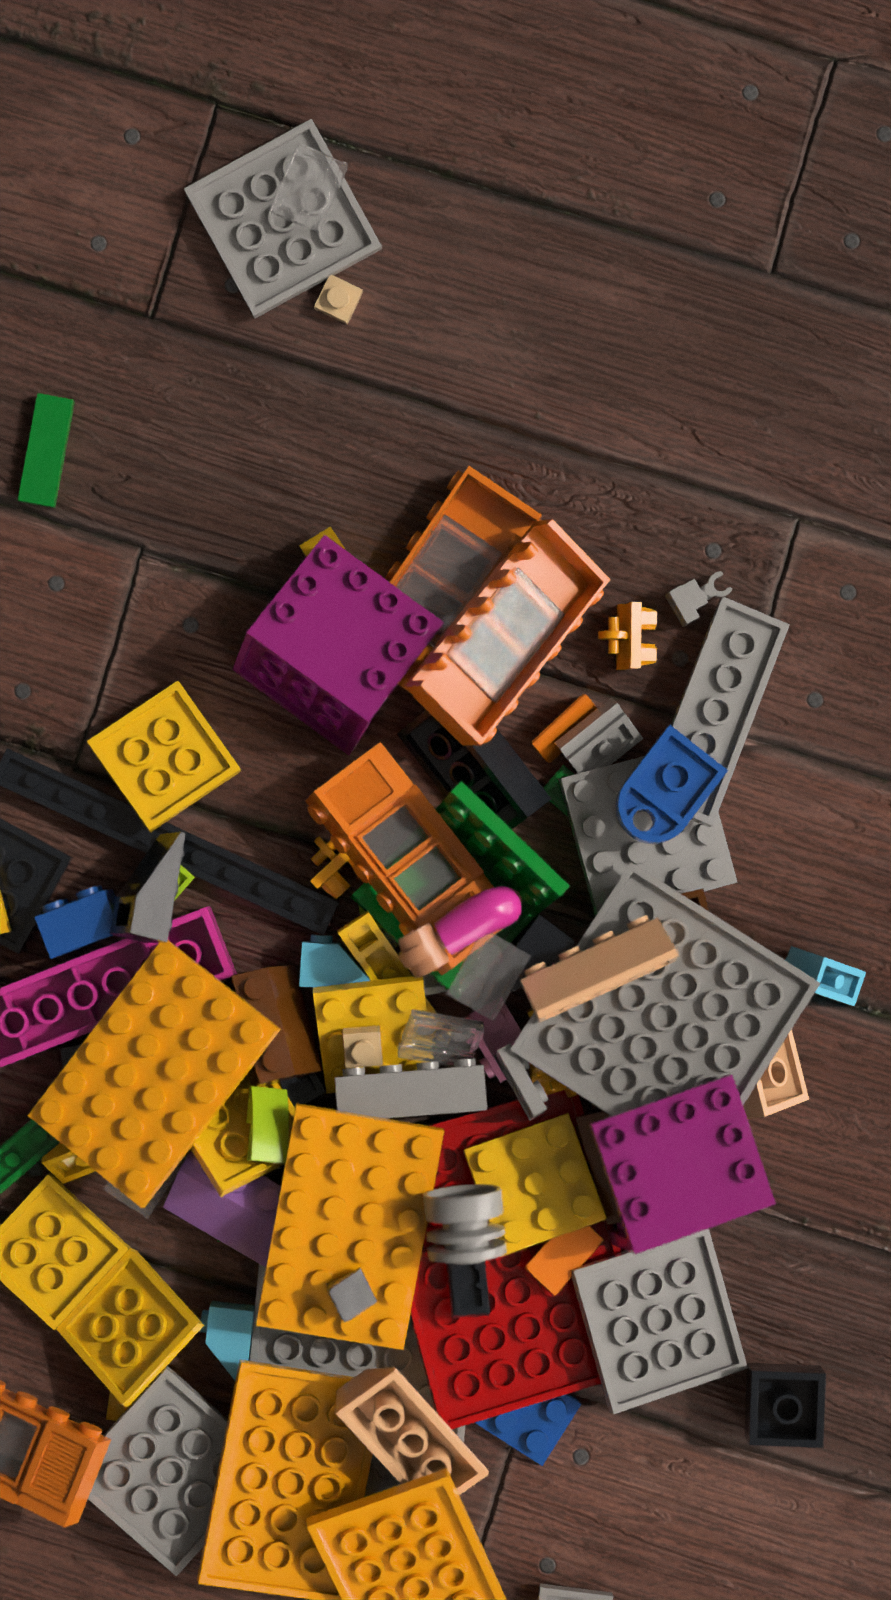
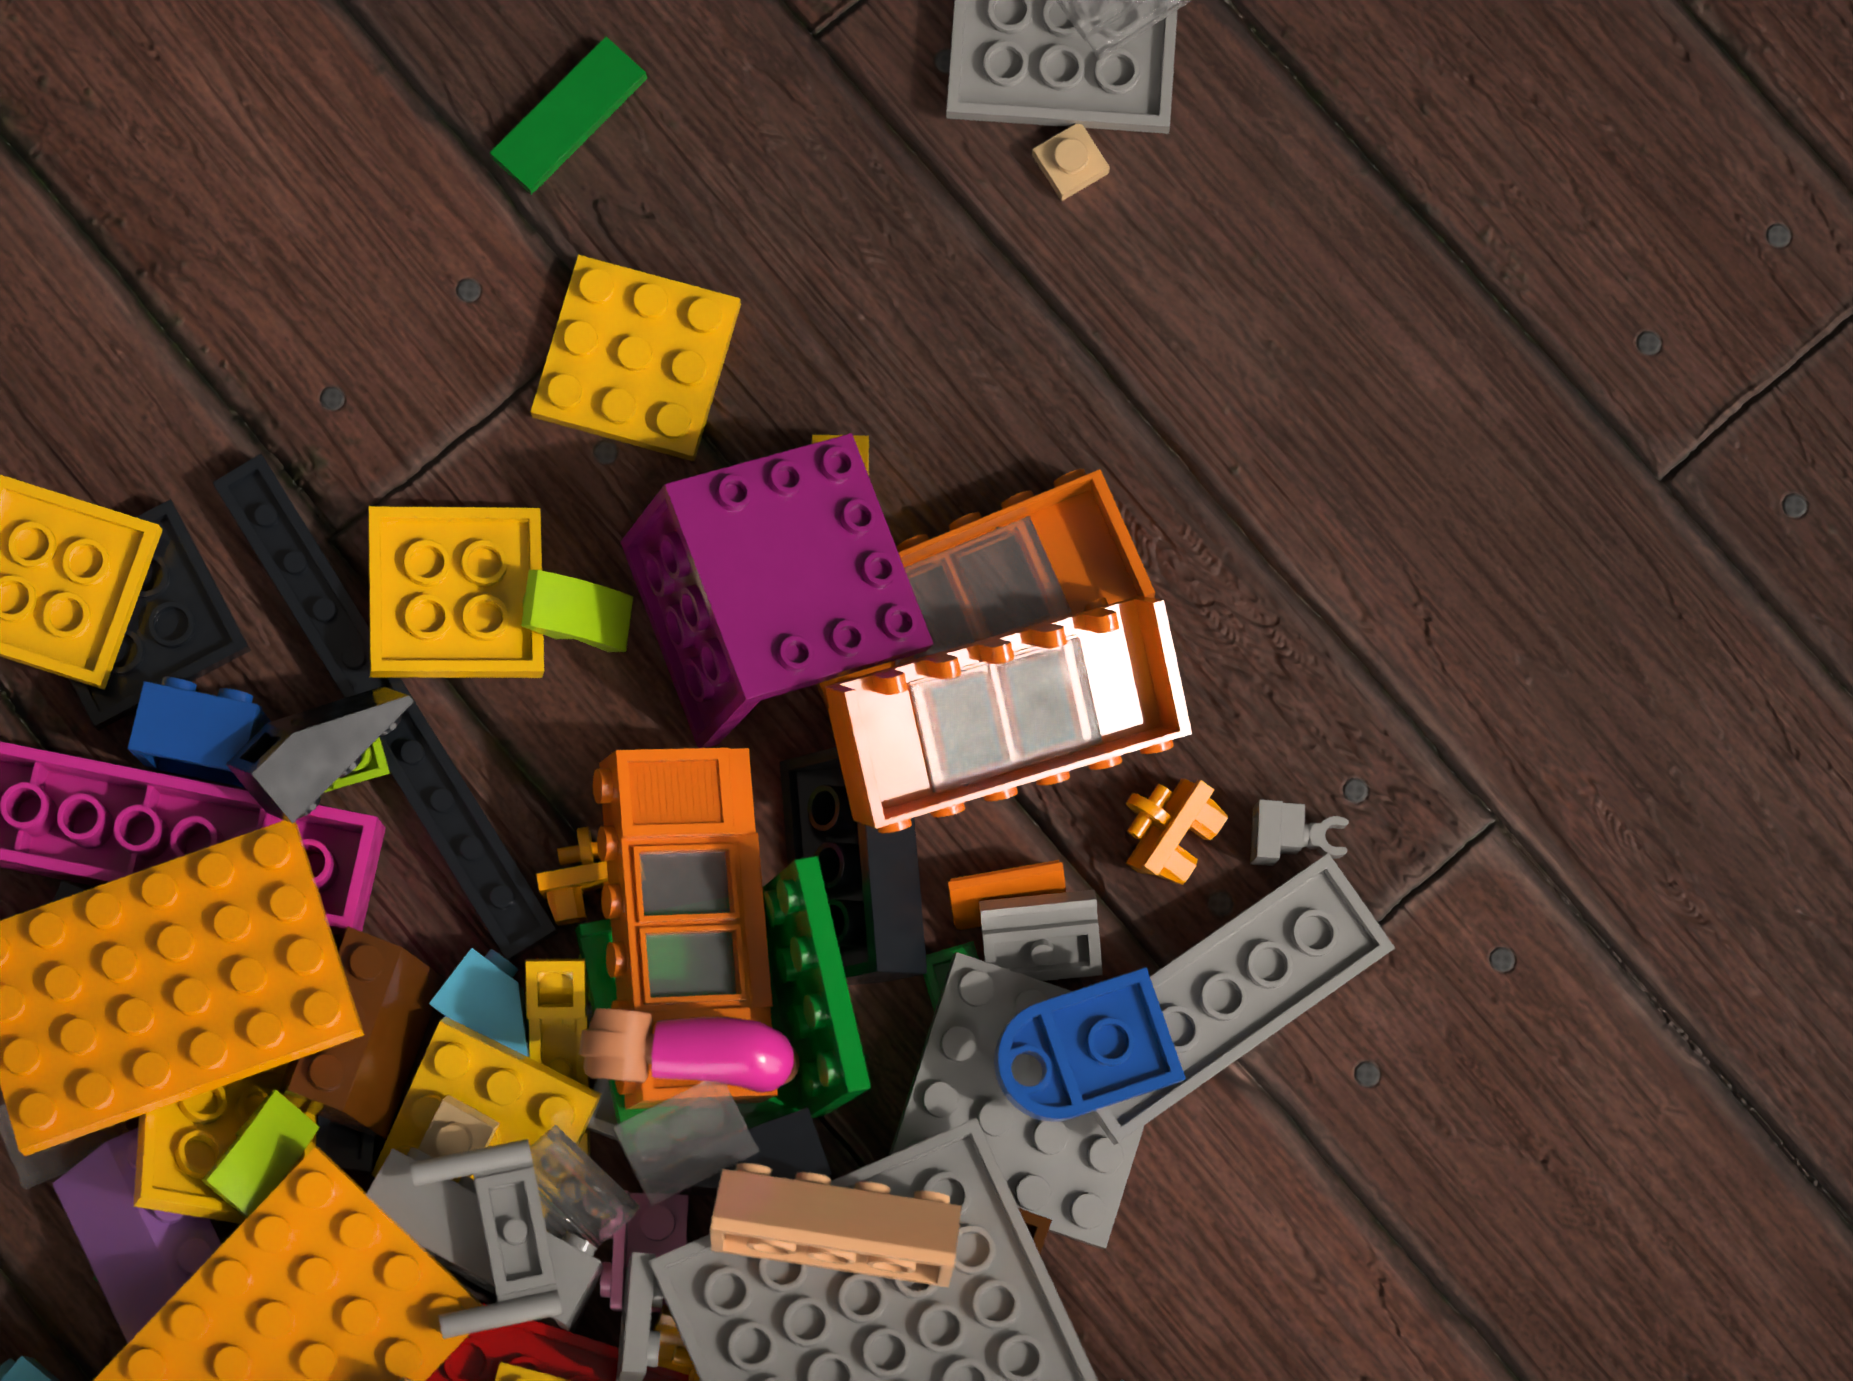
camera: 35 degrees right, 10 degrees down
(173, 562) = (636, 358): none -> yellow plate
(236, 724) = (577, 610): none -> lime slope
(430, 1082) = (512, 1232): none -> light grey plate

